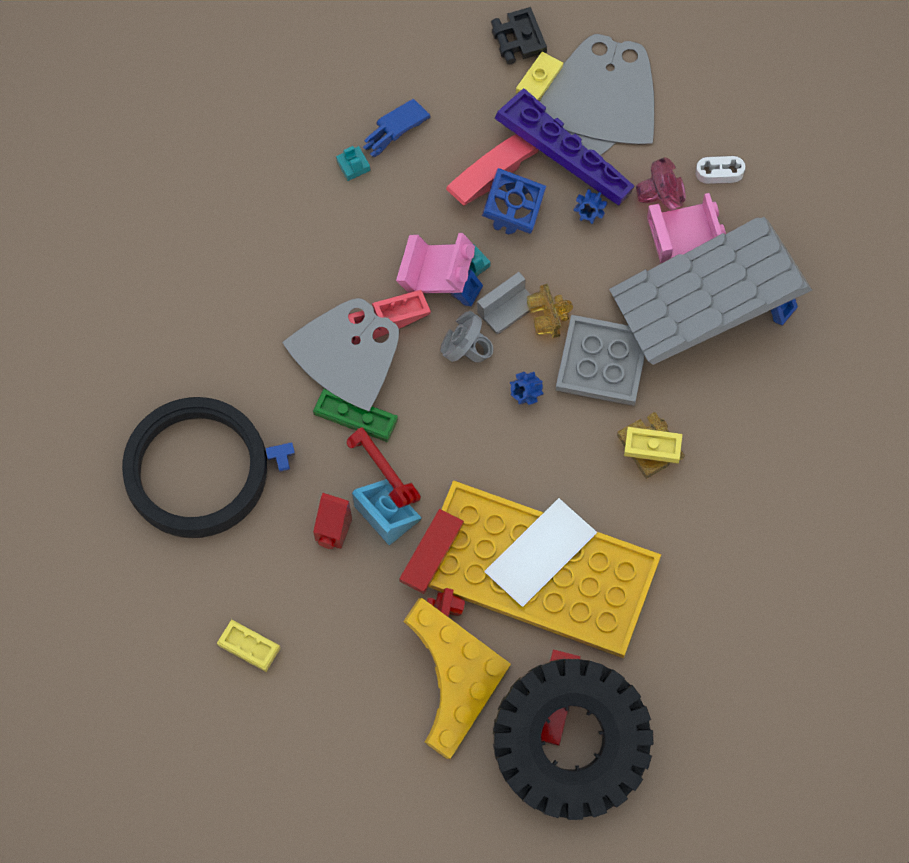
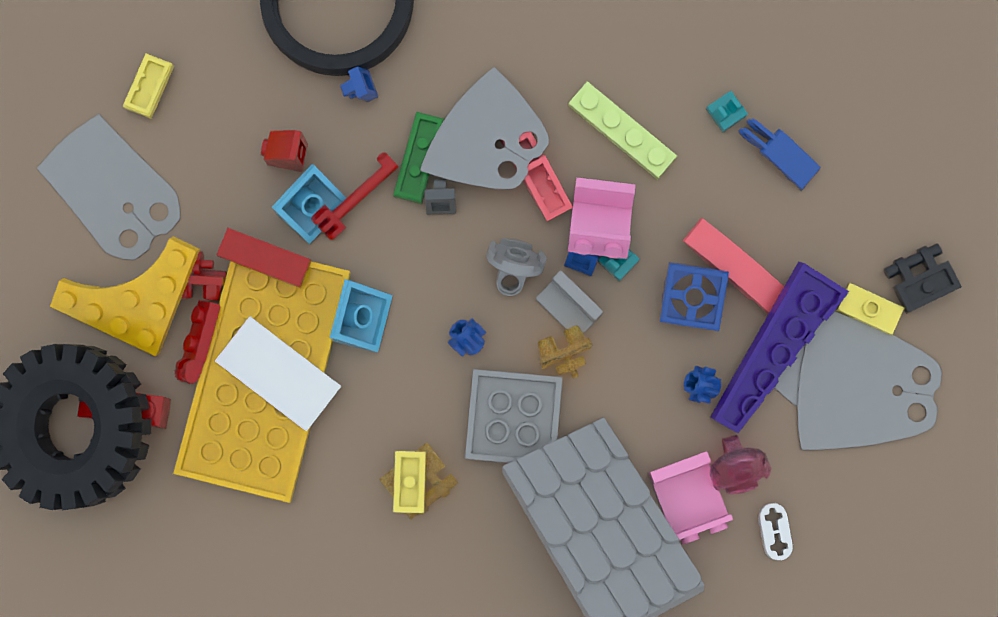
camera: 85 degrees right, 15 degrees up
(329, 703) = (98, 176): none -> light grey piece
(356, 246) = (622, 130): none -> yellowish green plate
(397, 397) = (440, 199): none -> dark grey tile
(496, 476) = (360, 316): none -> medium azure slope
(502, 621) = (197, 342): none -> red hinge

